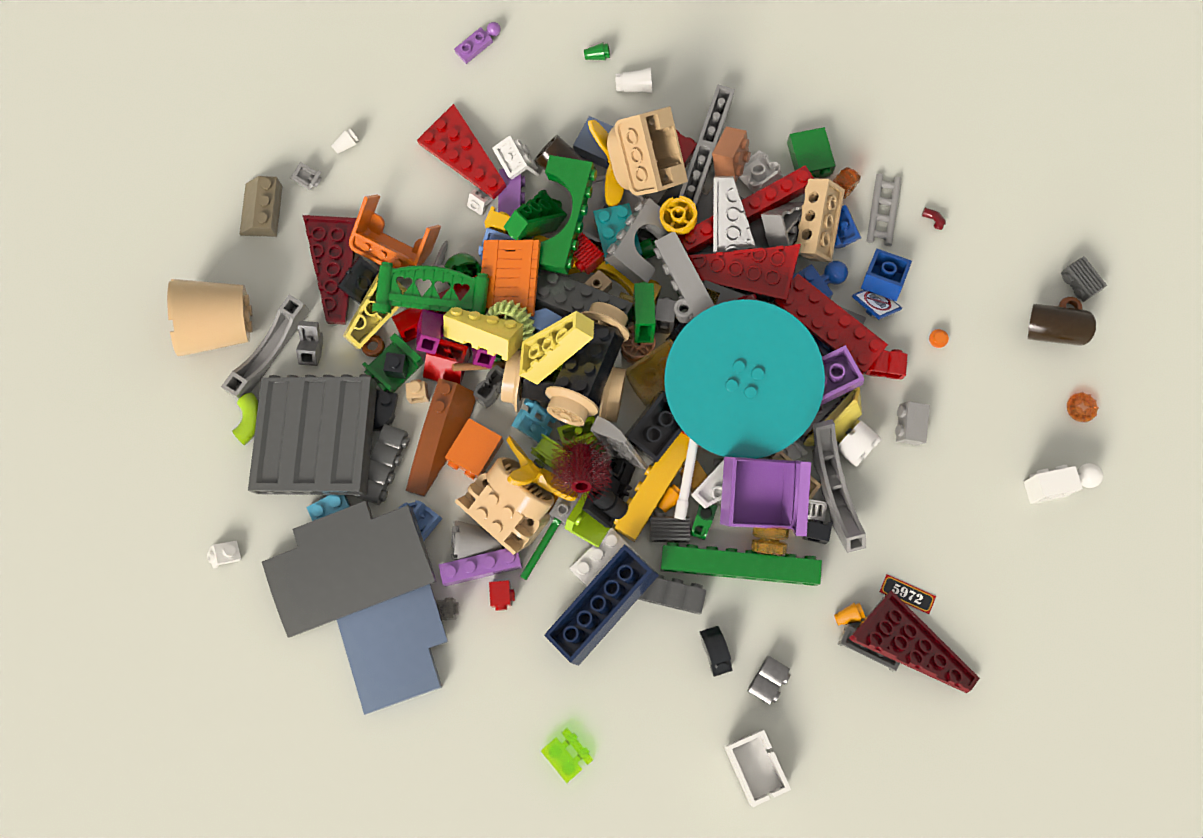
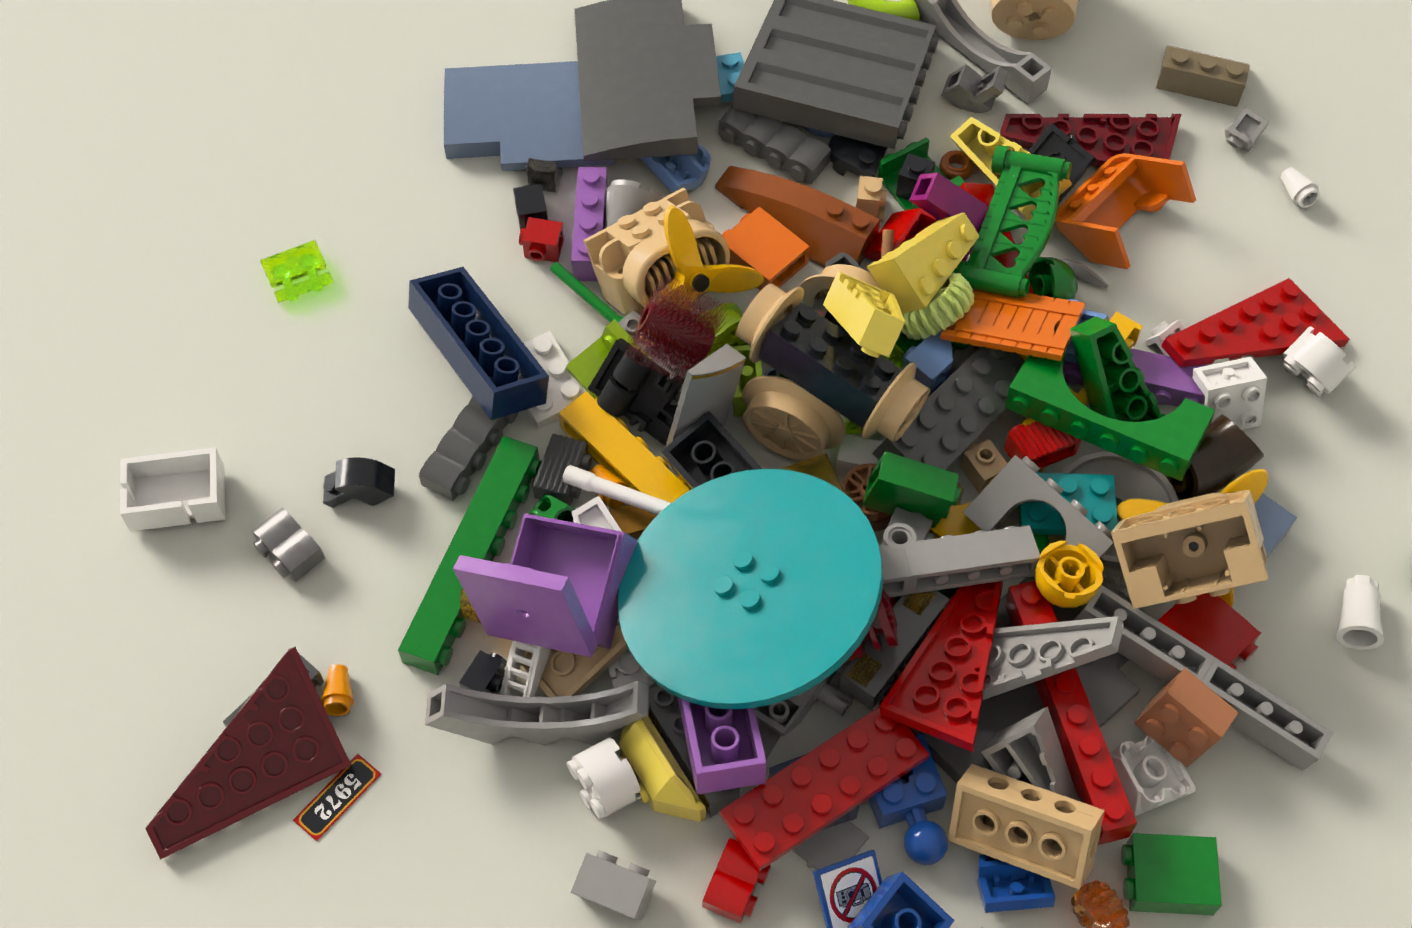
camera: 105 degrees right, 15 degrees down
(475, 611) = (529, 203): none -> black brick
(482, 115) = (1317, 361): none -> white brick

